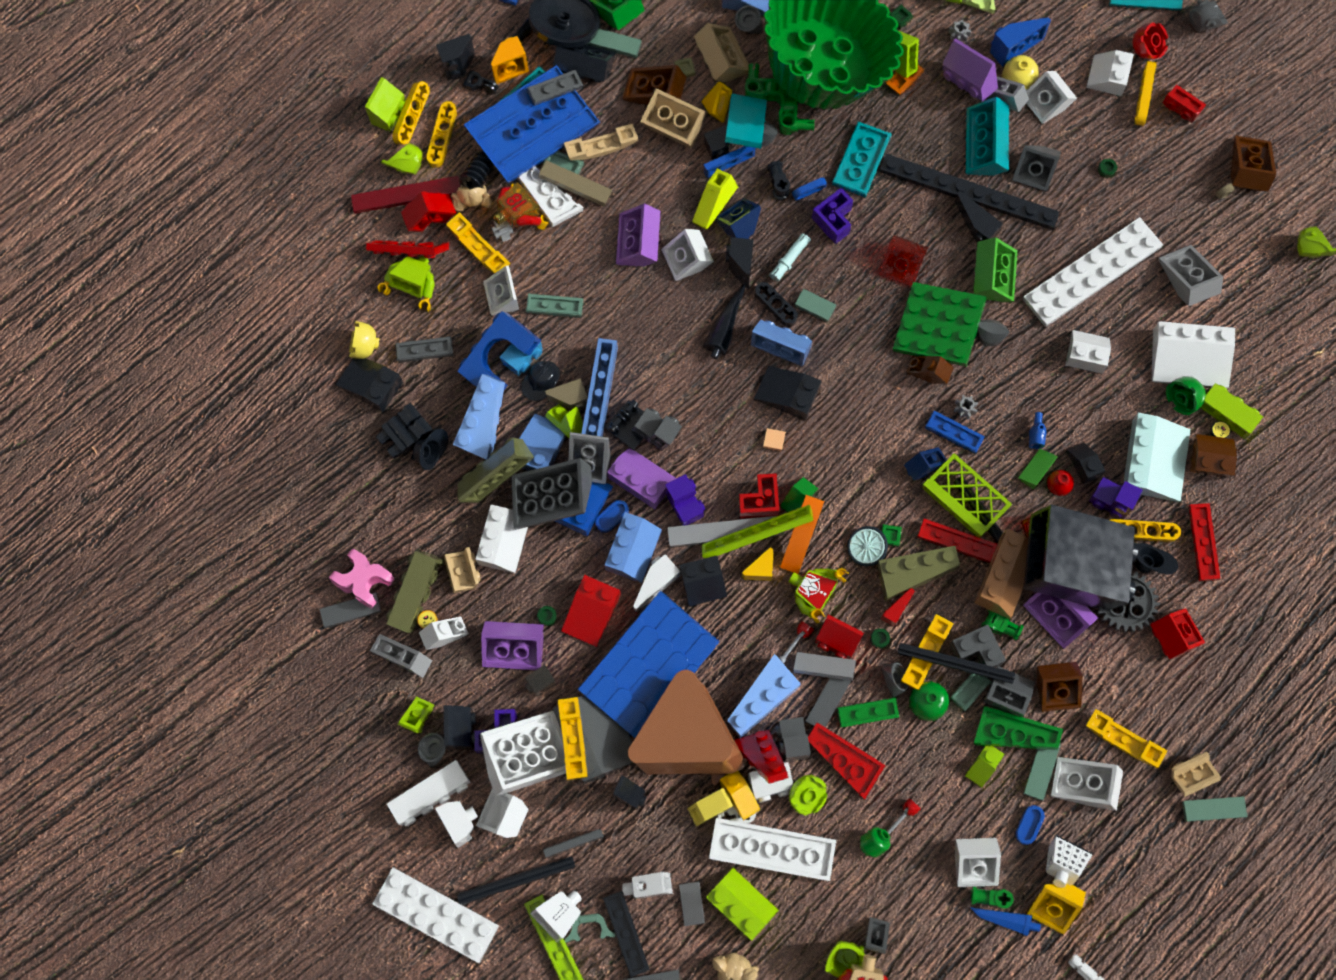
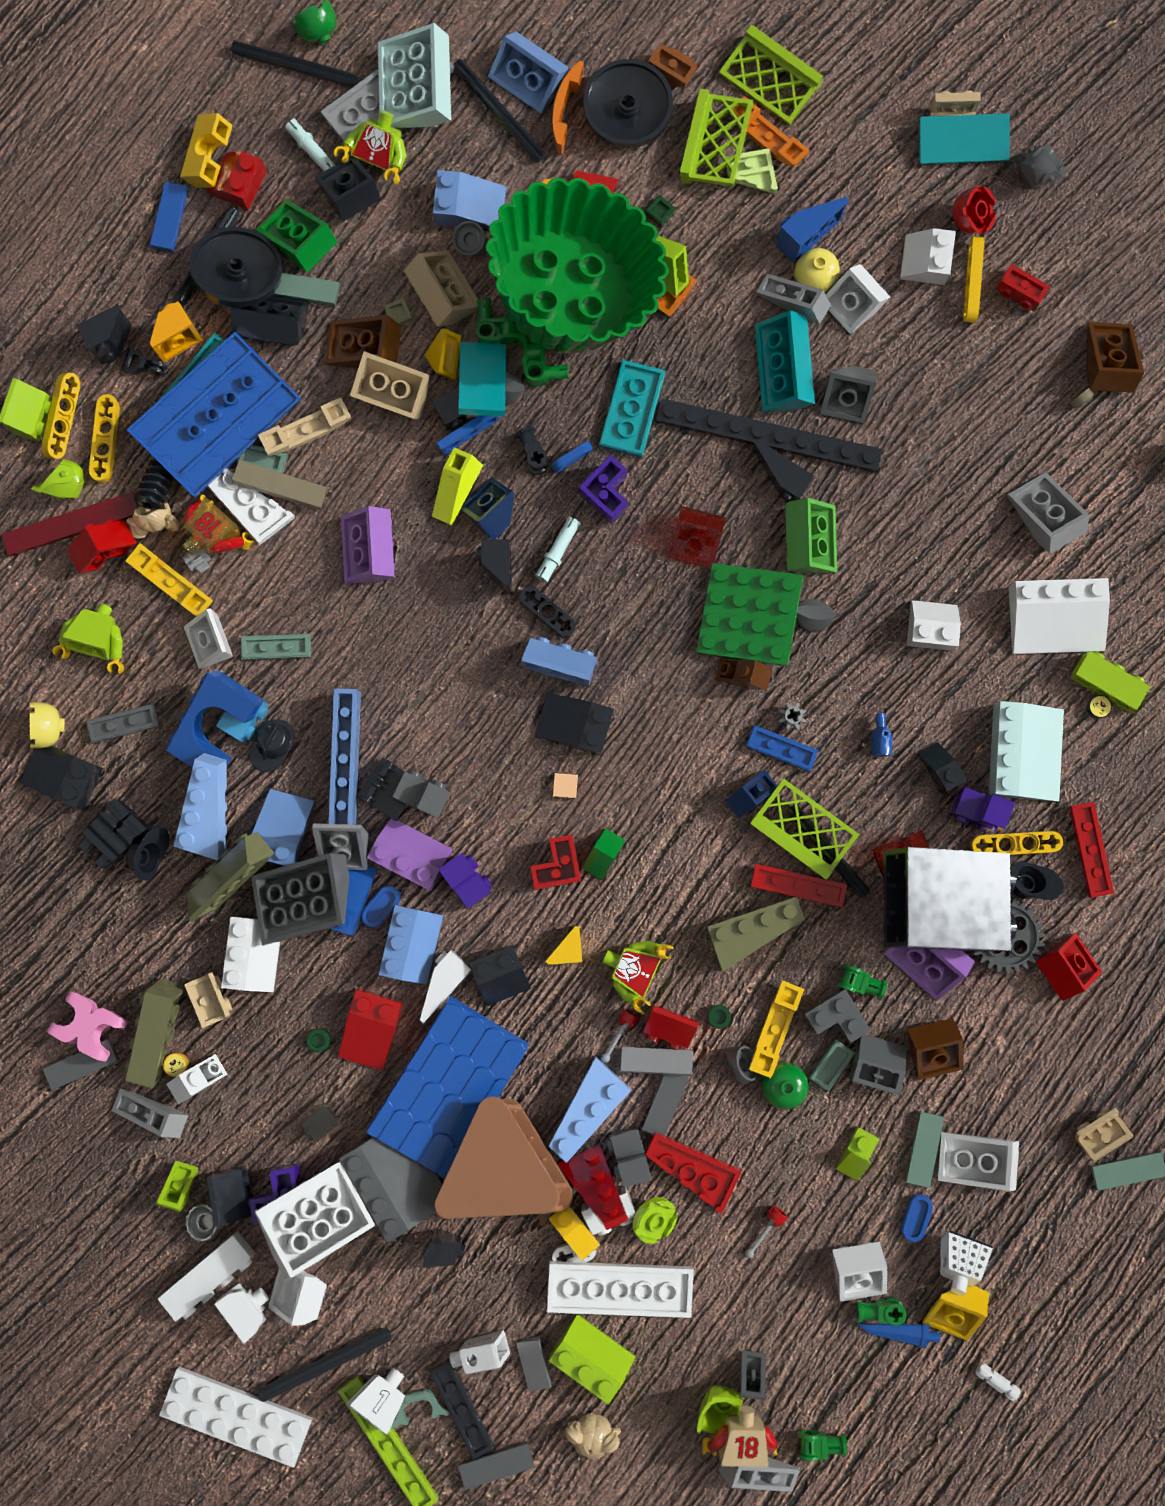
camera: 10 degrees left, 10 degrees up
(408, 247) = (83, 596): red wing -> none
(512, 645) = (281, 1083): medium lavender slope -> none
(554, 87) = (236, 363): dark grey tile -> none
(565, 420) = (309, 796): lime slope -> none
(568, 395) = (309, 762): dark tan slope -> none
(572, 738) = (368, 1198): yellow slope -> none
(573, 843) = (386, 1313): dark grey tile -> none
(687, 254) = (431, 561): white slope -> none
(706, 532) = (520, 908): light grey tile -> none
(710, 807) = (541, 1250): light yellow slope -> none
(722, 330) = (485, 656): black piece -> none
(757, 532) = (558, 911): lime tile -> none
(801, 537) = (612, 902): orange slope -> none
(815, 305) = (596, 607): sand green tile -> none
(867, 546) = (692, 905): light aqua wheel -> none
(867, 712) = (714, 1108): green tile -> none
(875, 842) = (739, 1266): green head -> none
(892, 534) = (718, 888): green tile -> none
(893, 613) = (734, 982): red slope -> none
(956, 663) = (812, 1041): black axle -> none
(960, 31) = (733, 229): light grey gear -> none
(970, 70) = (754, 278): medium lavender slope -> none
(1004, 575) = (859, 925): medium nougat slope -> none
(1010, 730) = (885, 1111): green wing -> none
(1037, 468) = (885, 782): bright green slope -> none
(1060, 482) = (914, 796): red brick -> none
(1092, 272) = (929, 522): white plate -> none
(1107, 168) = (935, 383): dark green tile -> none
(1125, 740) = (1020, 1103): yellow slope -> none
(1186, 394) = (1056, 668): green cylinder -> none
(1214, 456) = (1095, 741): reddish brown slope -> none

